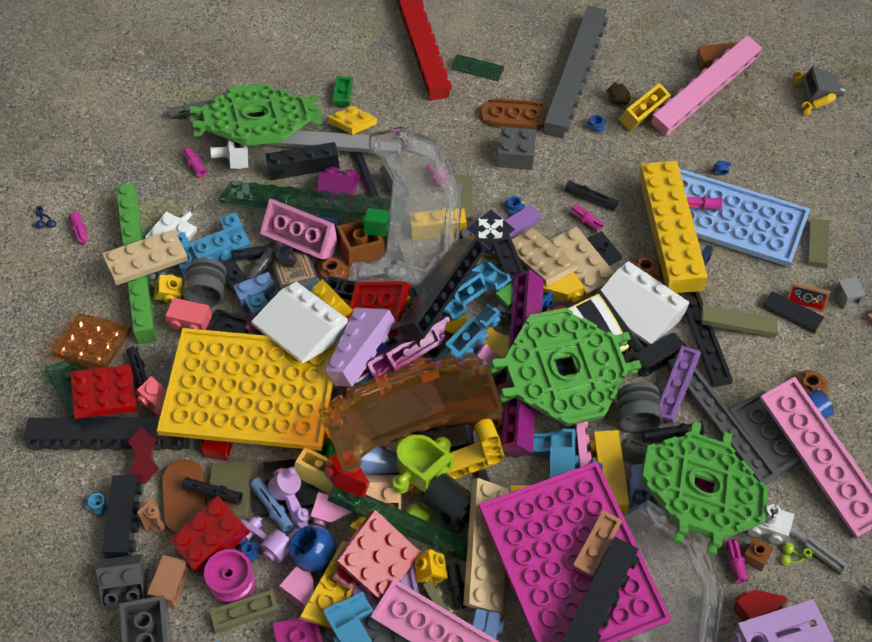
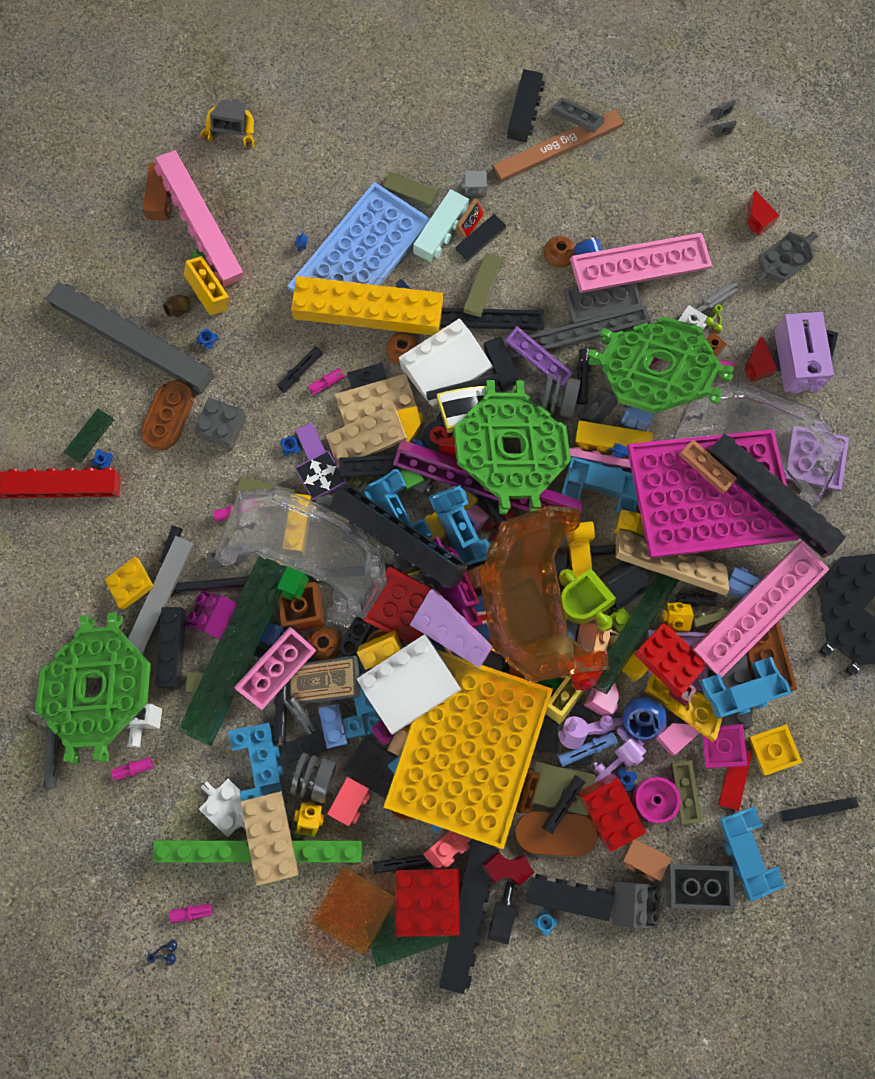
camera: 80 degrees left, 20 degrees up
(97, 461) = (503, 917): none -> black beam
(150, 516) = (581, 867): nougat hinge -> none
(219, 456) = (528, 792): none -> reddish brown slope
(284, 253) = (300, 687): black plate -> none
(342, 91) = (79, 585): green plate -> none
(458, 80) = (101, 464): none -> blue plate
(704, 202) = (346, 267): dark pink axle -> none
(784, 271) = (440, 226): none -> light aqua brick

